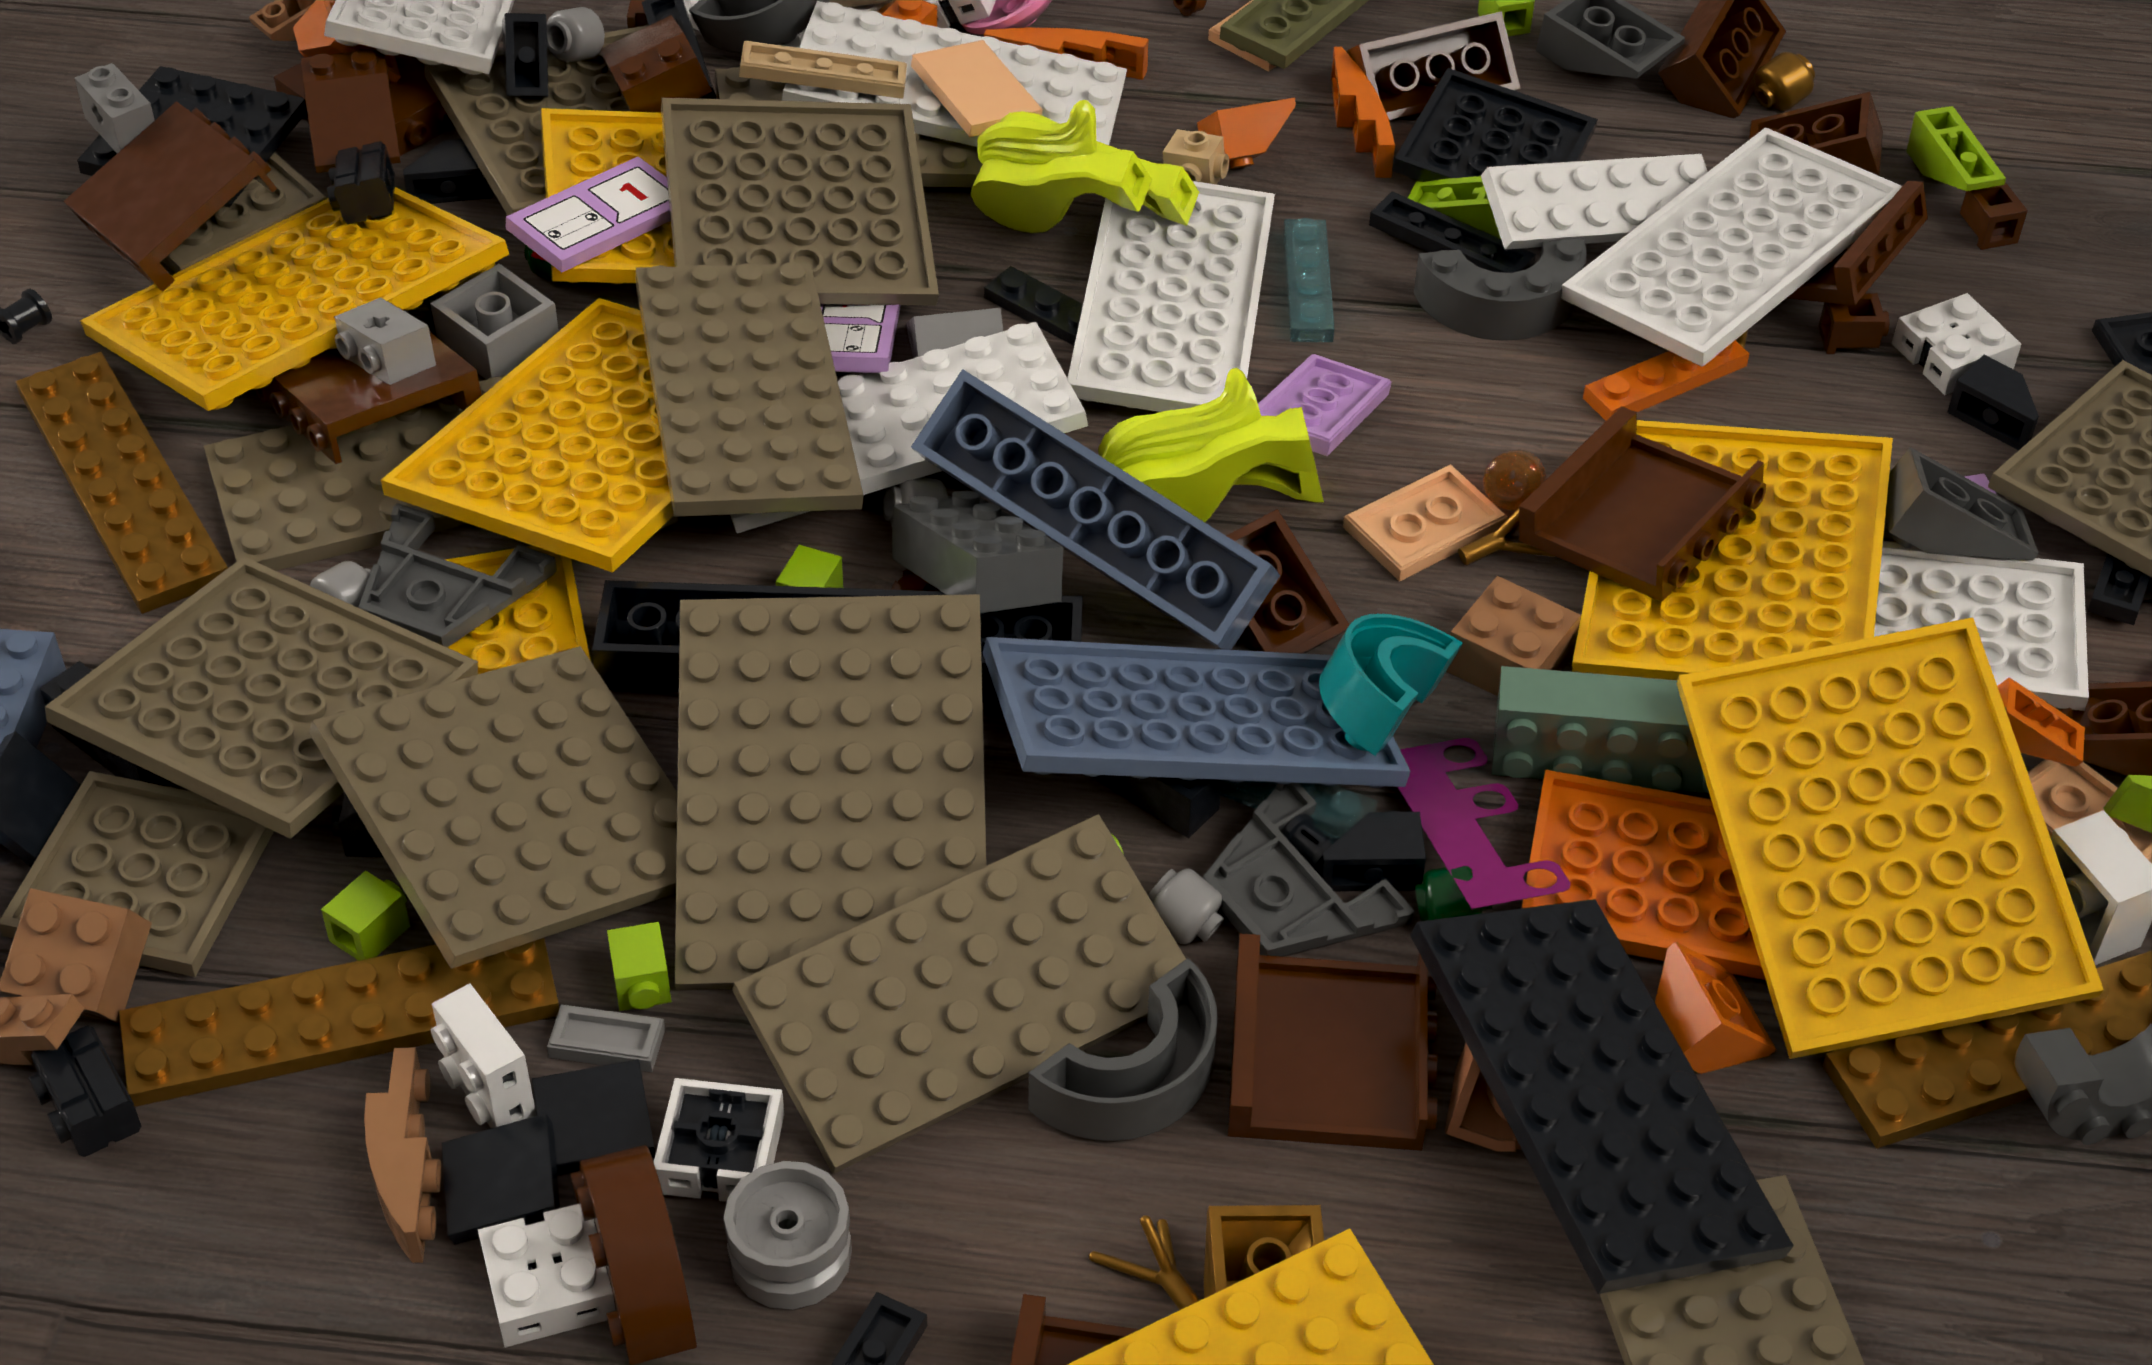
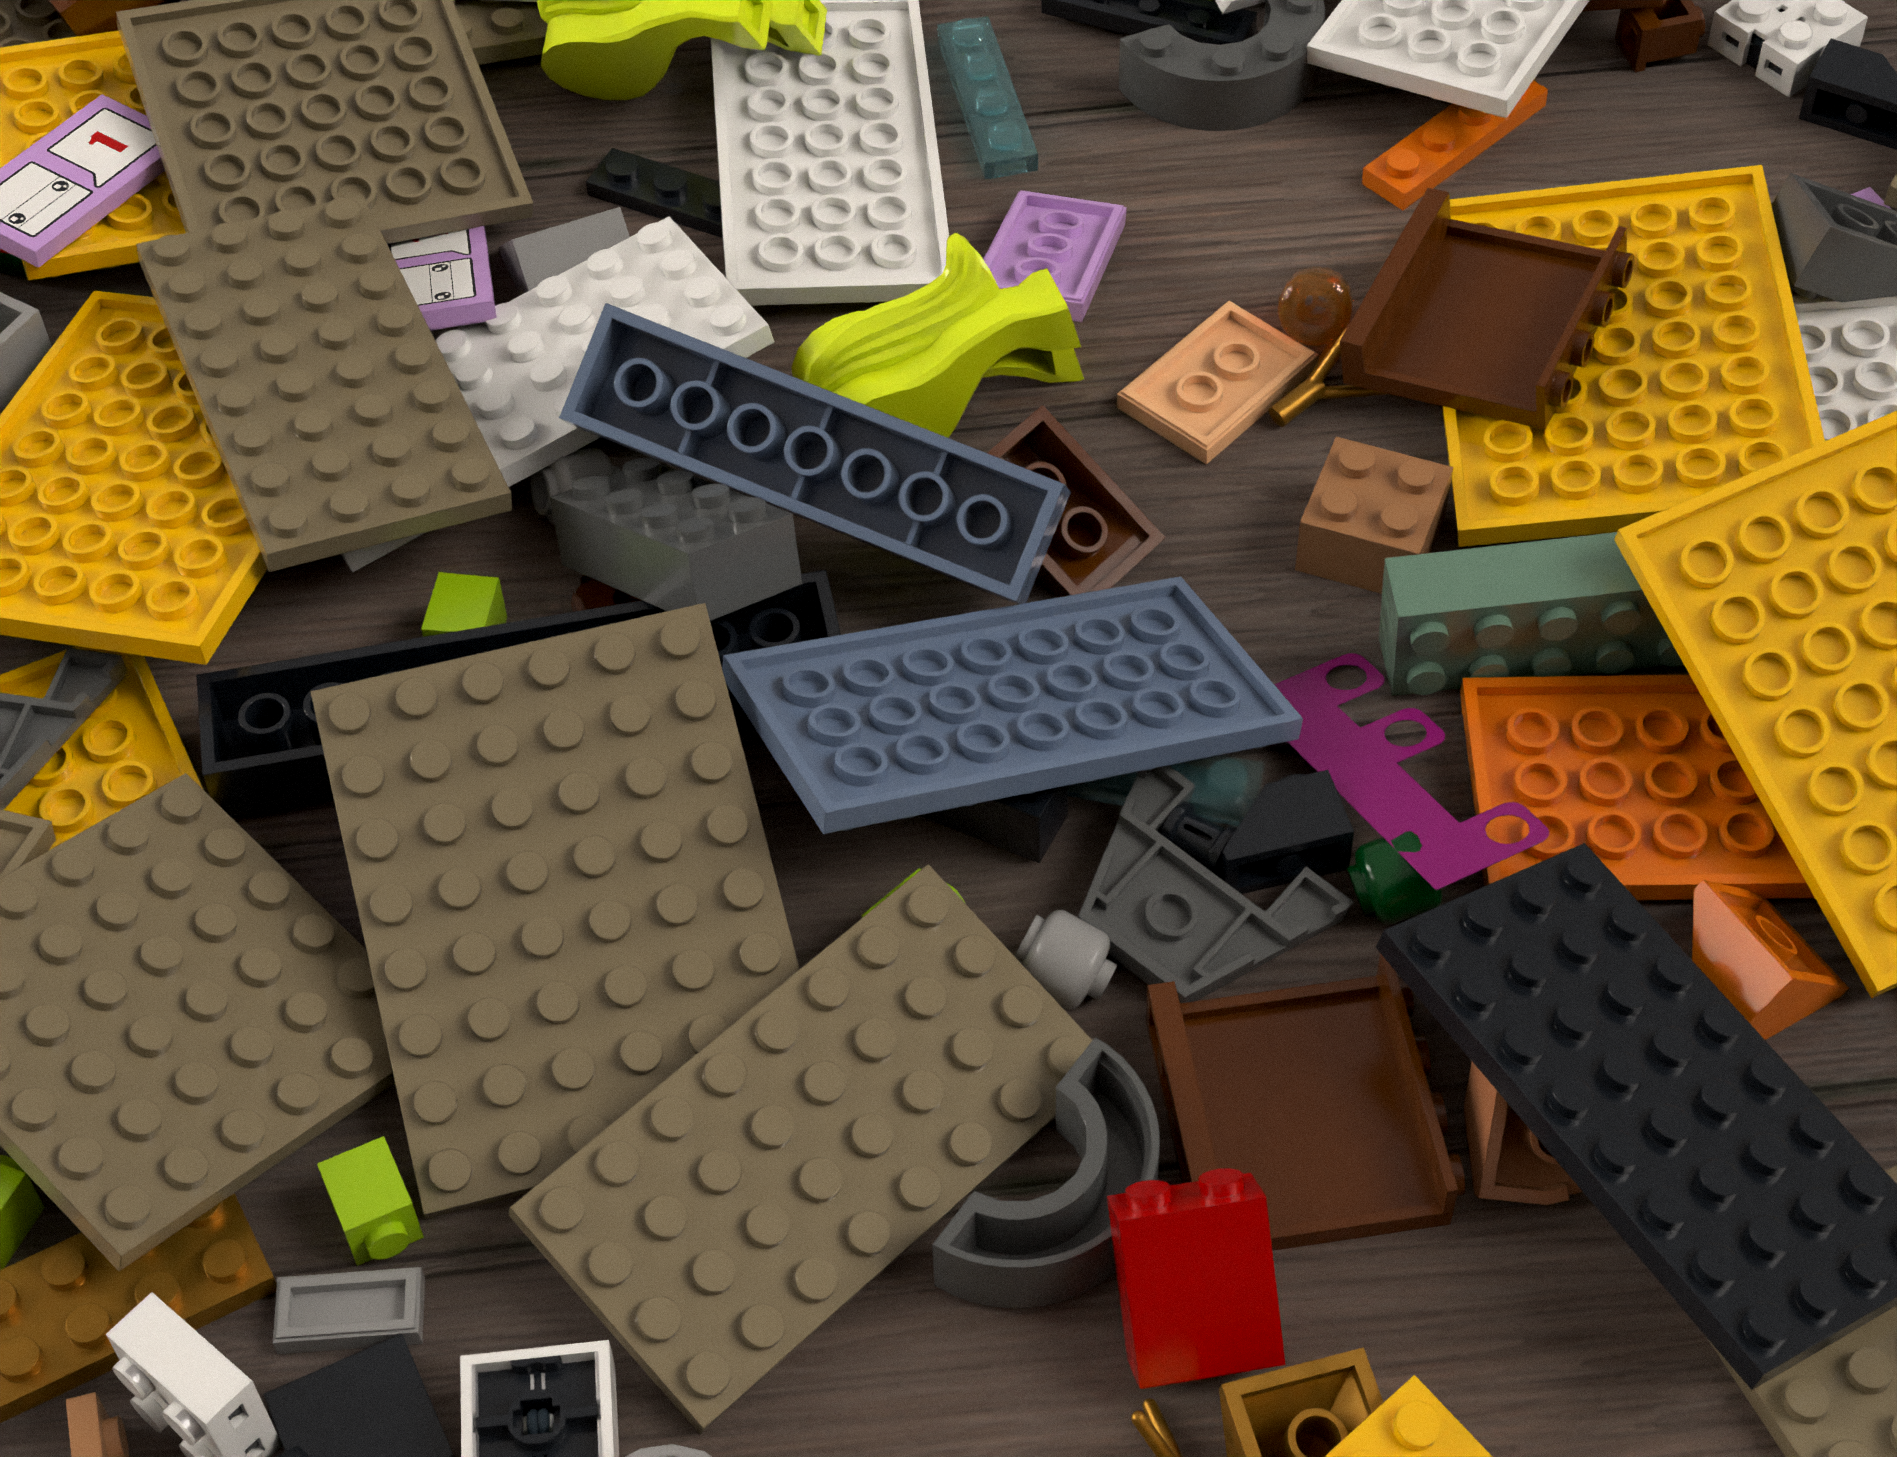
camera: 10 degrees left, 5 degrees up
(1213, 1134) = (1196, 1278): none -> red brick
(1379, 674) = (1232, 601): teal brick -> none

